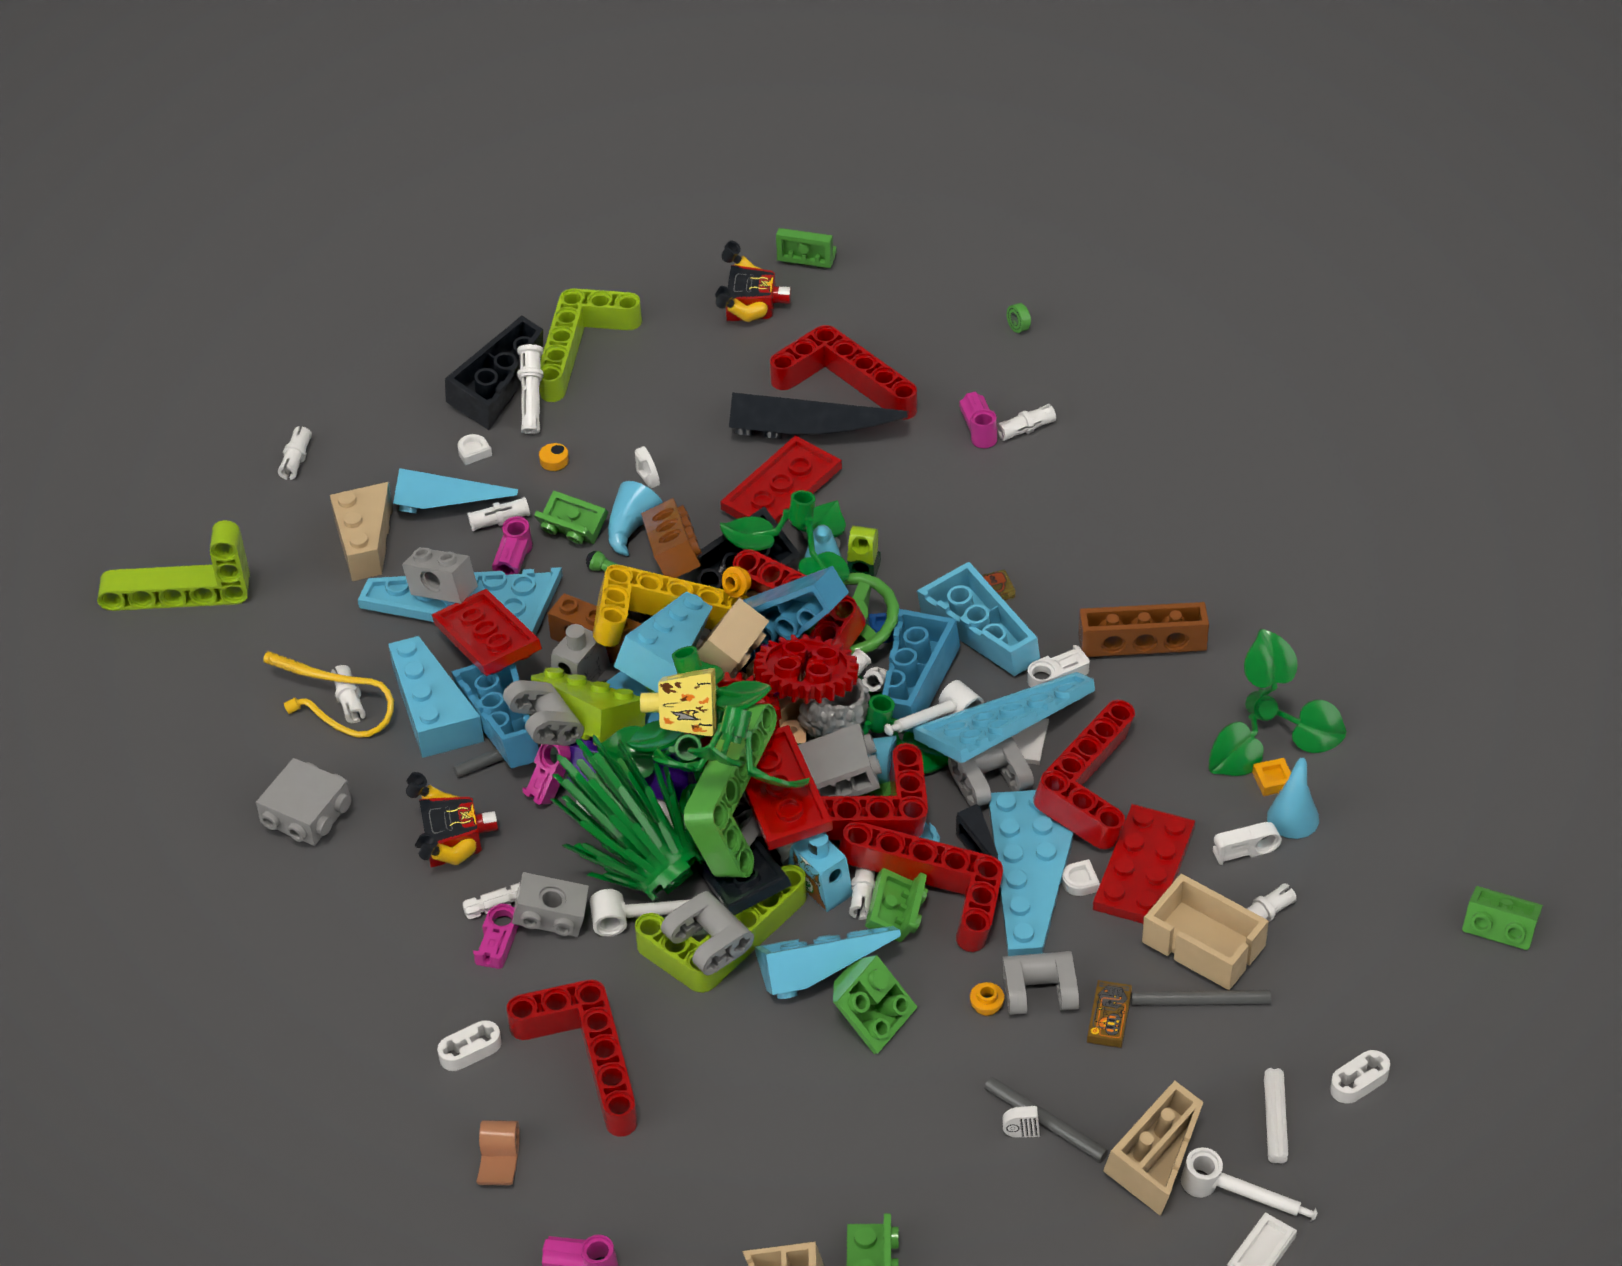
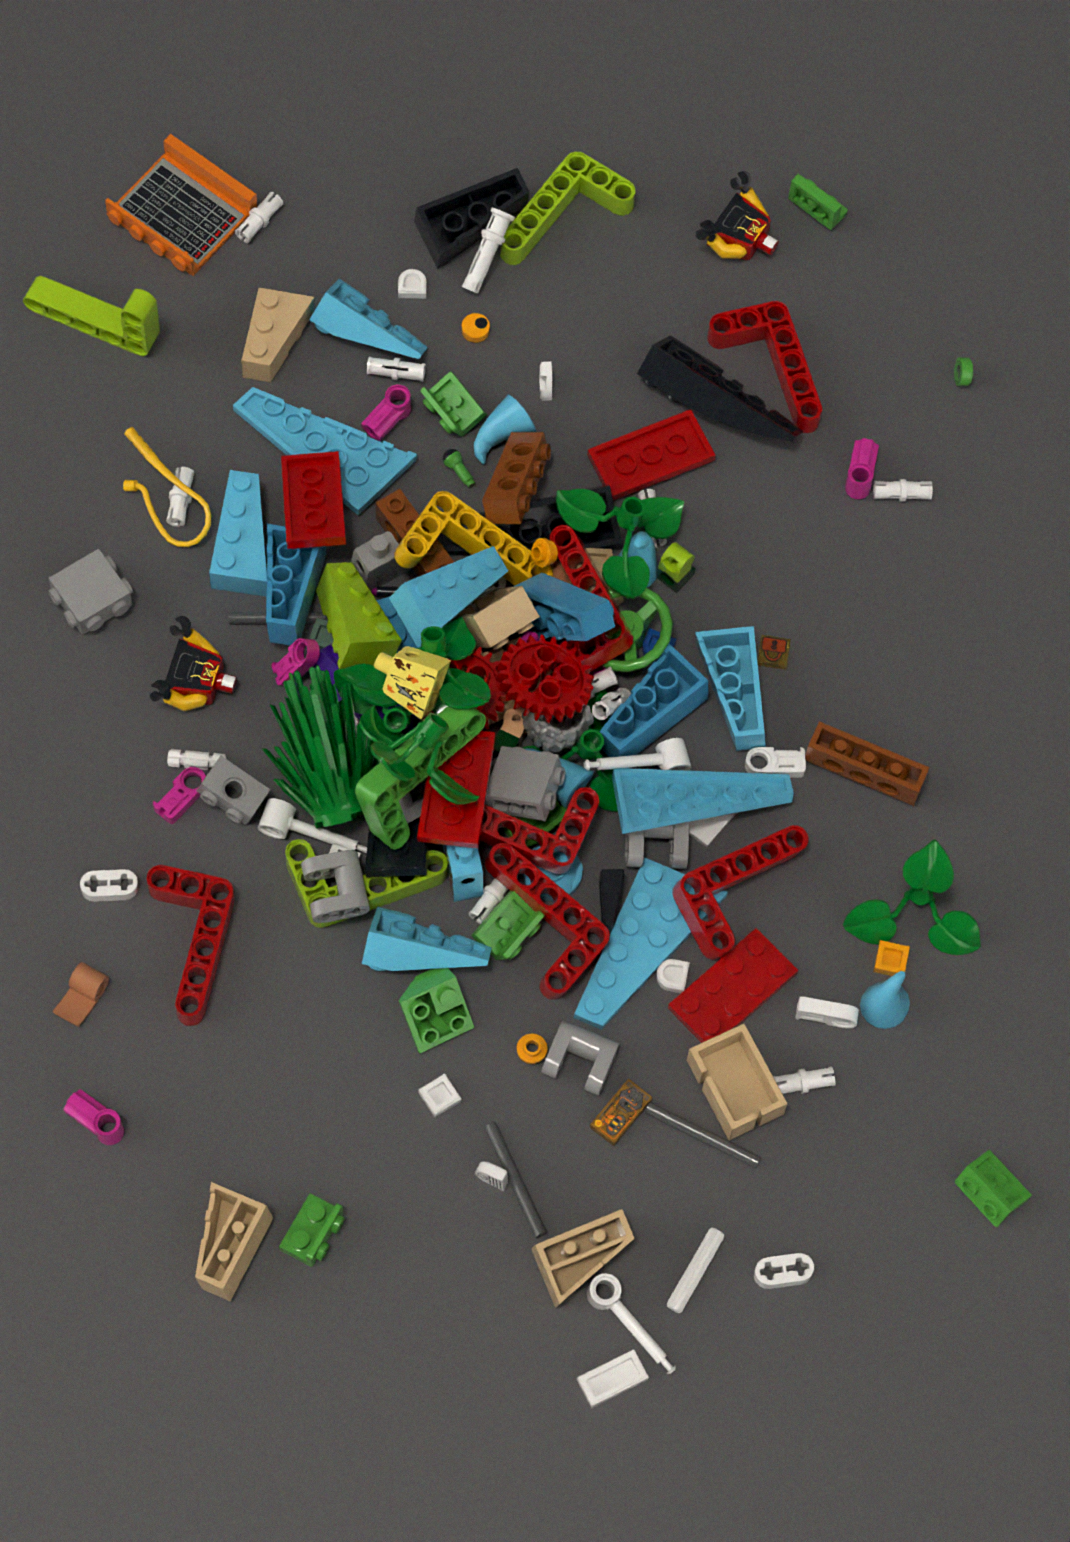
camera: 20 degrees right, 20 degrees up
(216, 470) = (183, 207): none -> panel
(440, 575) = (305, 421): light grey brick -> none
(551, 719) = (320, 630): light grey connector -> none
(922, 1080) = (439, 1095): none -> white tile

